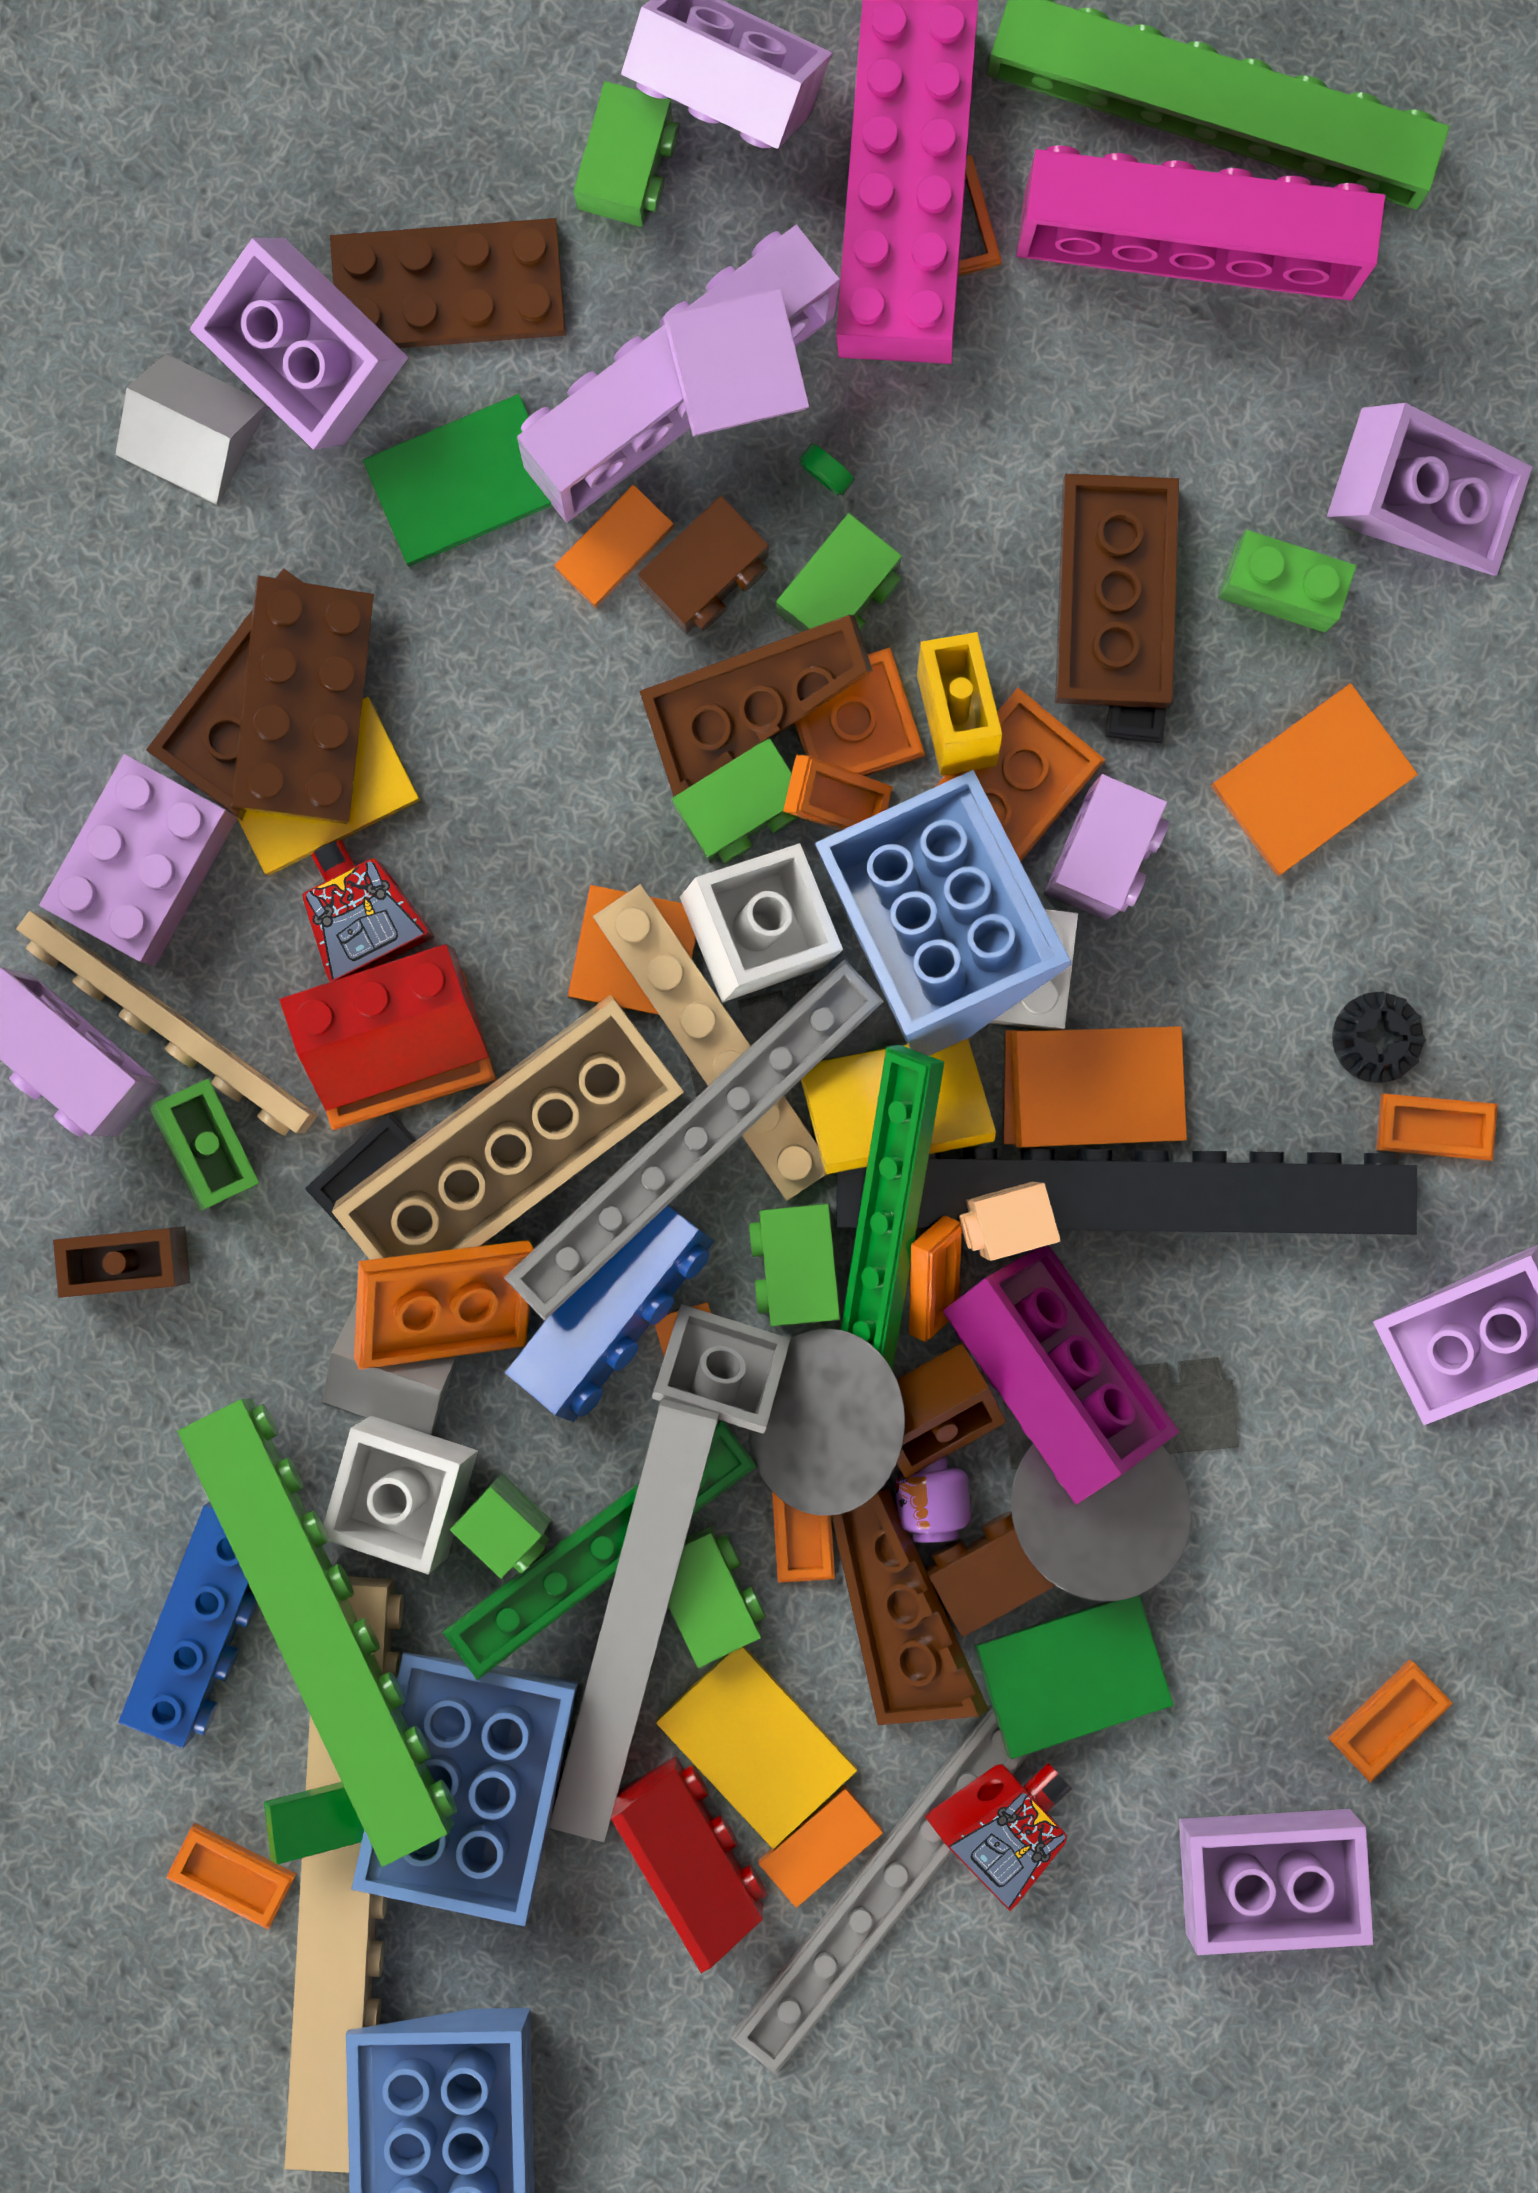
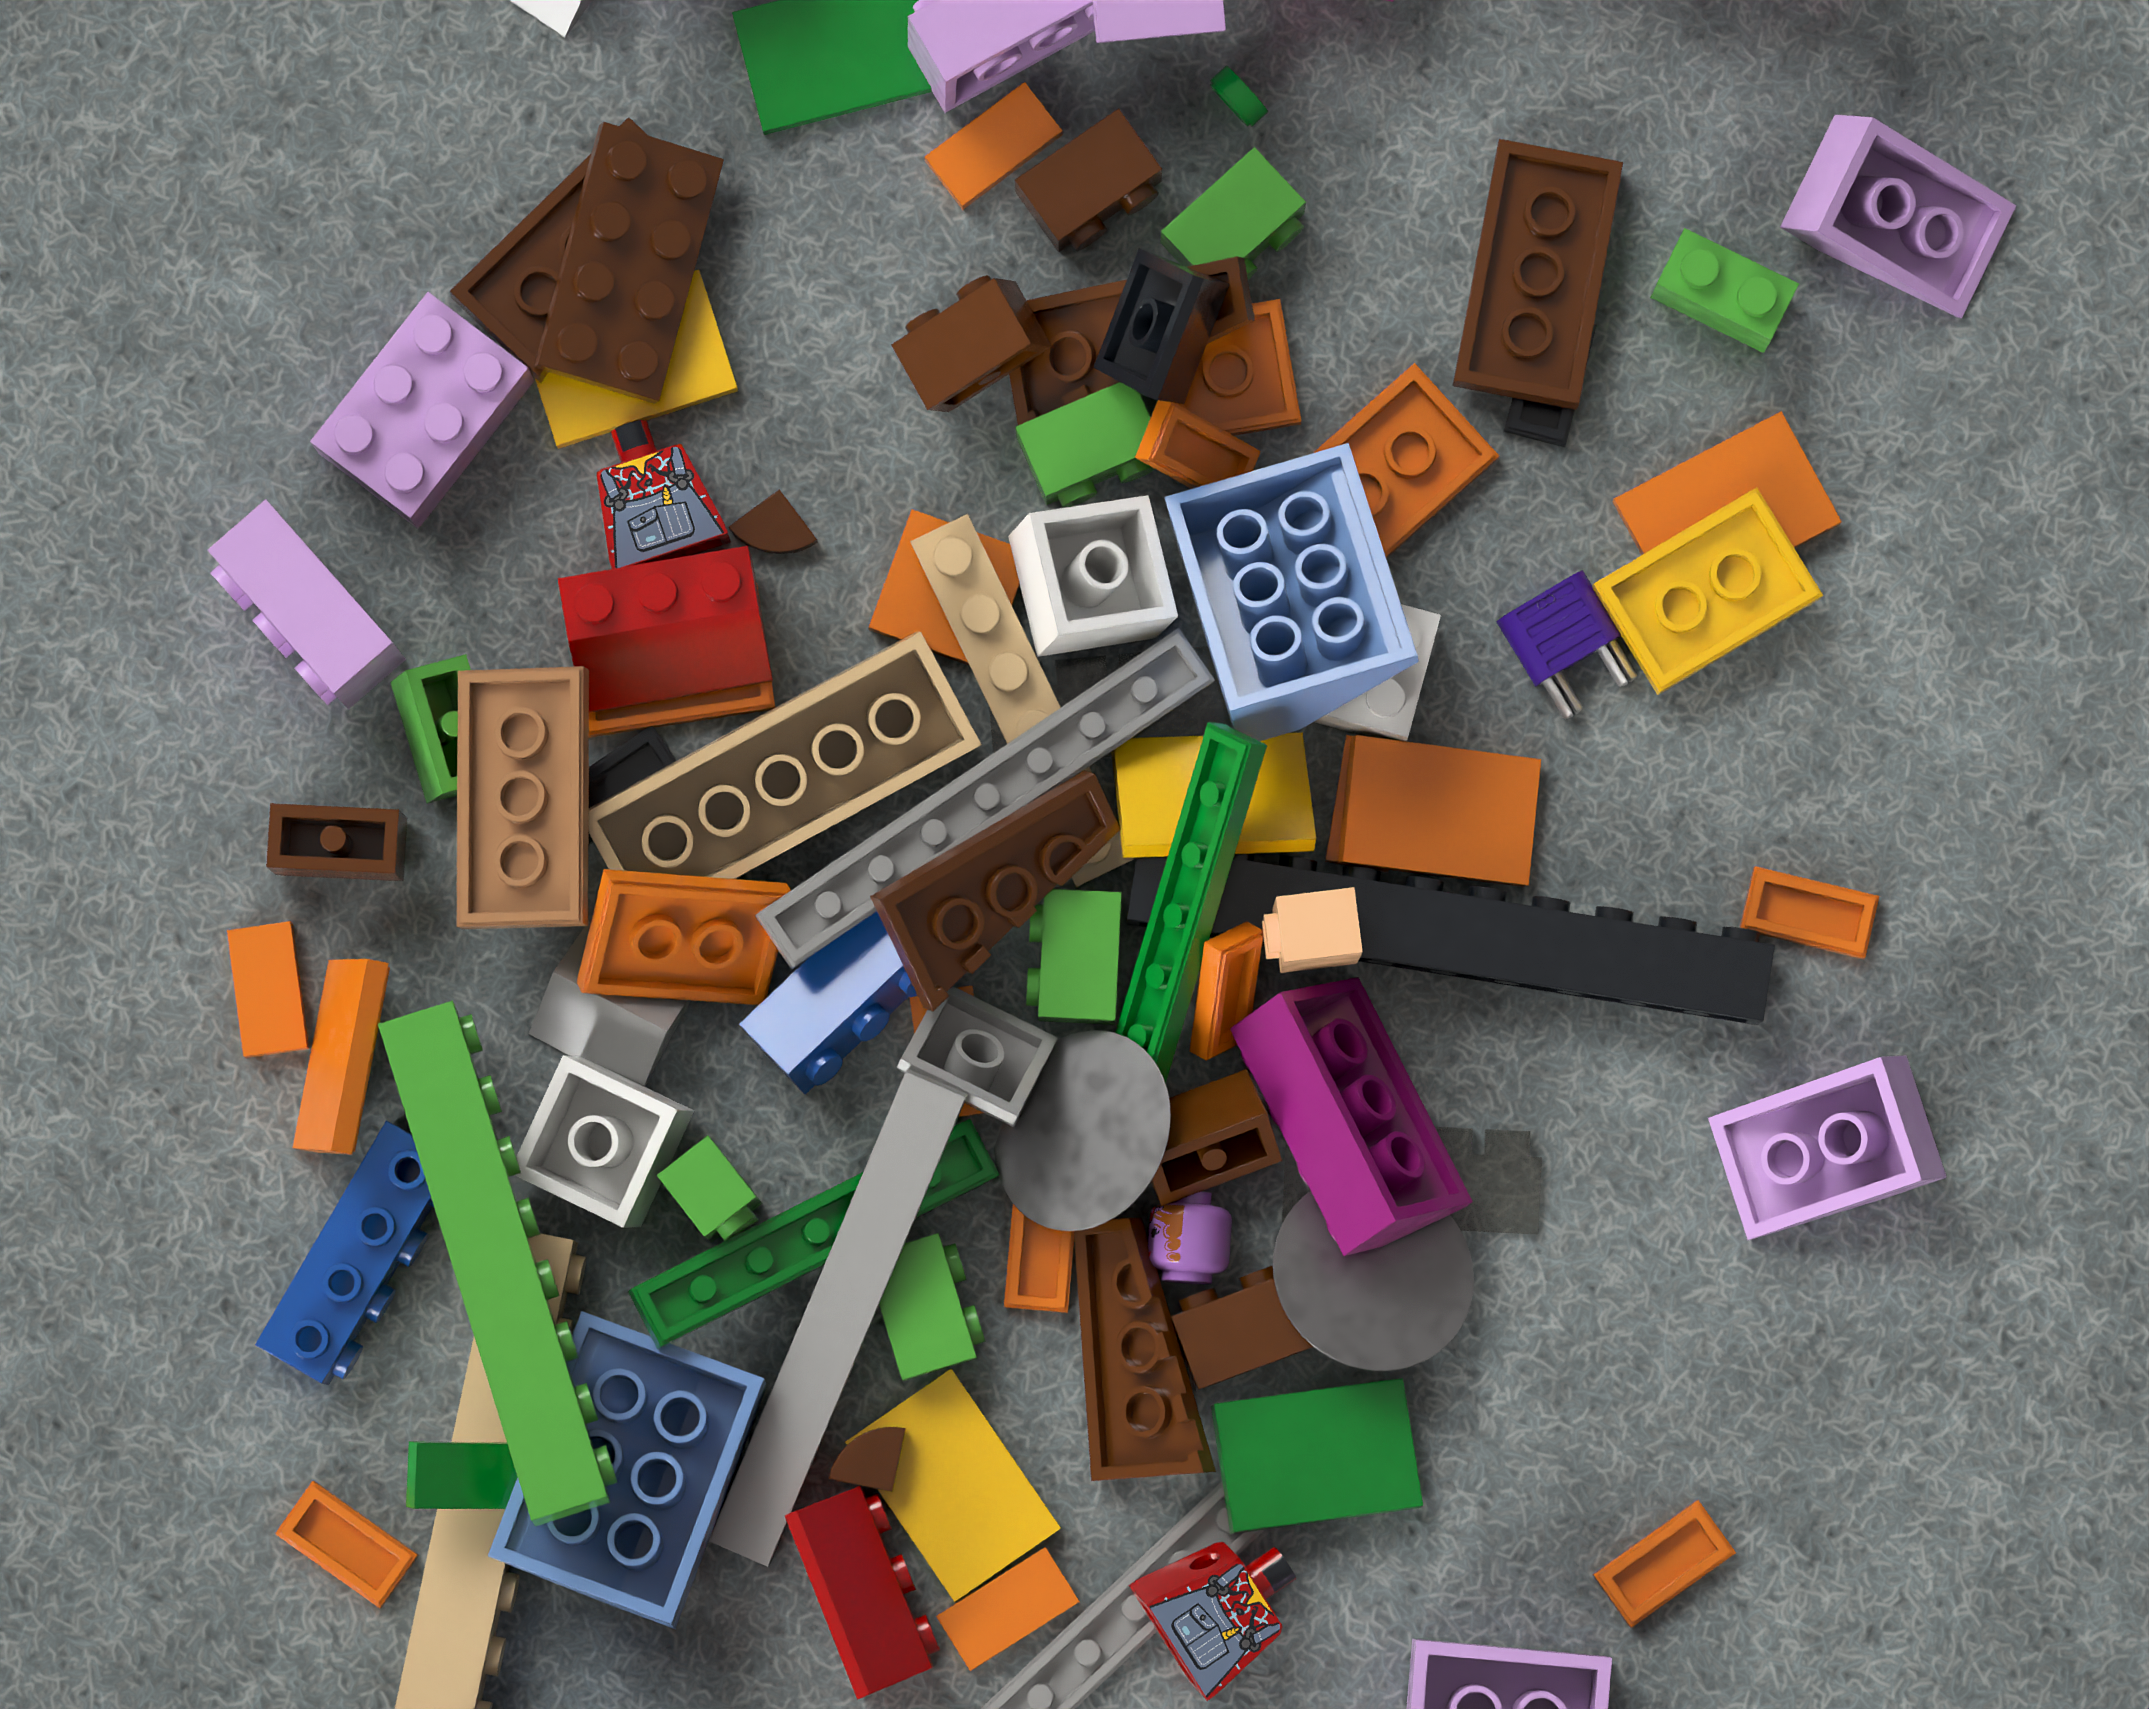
camera: 10 degrees right, 5 degrees down
(85, 1397) = (268, 989): none -> orange tile
(148, 1012) = (398, 570): tan plate -> none
(155, 1455) = (341, 1056): none -> orange tile
(277, 1203) = (523, 798): none -> medium nougat tile
(470, 918) = (774, 527): none -> reddish brown tile
(619, 728) = (970, 343): none -> reddish brown brick
(680, 1738) = (871, 1459): none -> reddish brown tile
(697, 1229) = (975, 893): none -> reddish brown wing
(789, 690) = (1161, 327): none -> black slope
(959, 703) = (1344, 370): yellow brick -> none
(1106, 848) = (1480, 550): lavender brick -> none
(1182, 909) = (1561, 631): none -> dark purple piece
(1309, 854) = (1707, 591): none -> yellow tile
(1359, 1055) = (1733, 820): black gear -> none

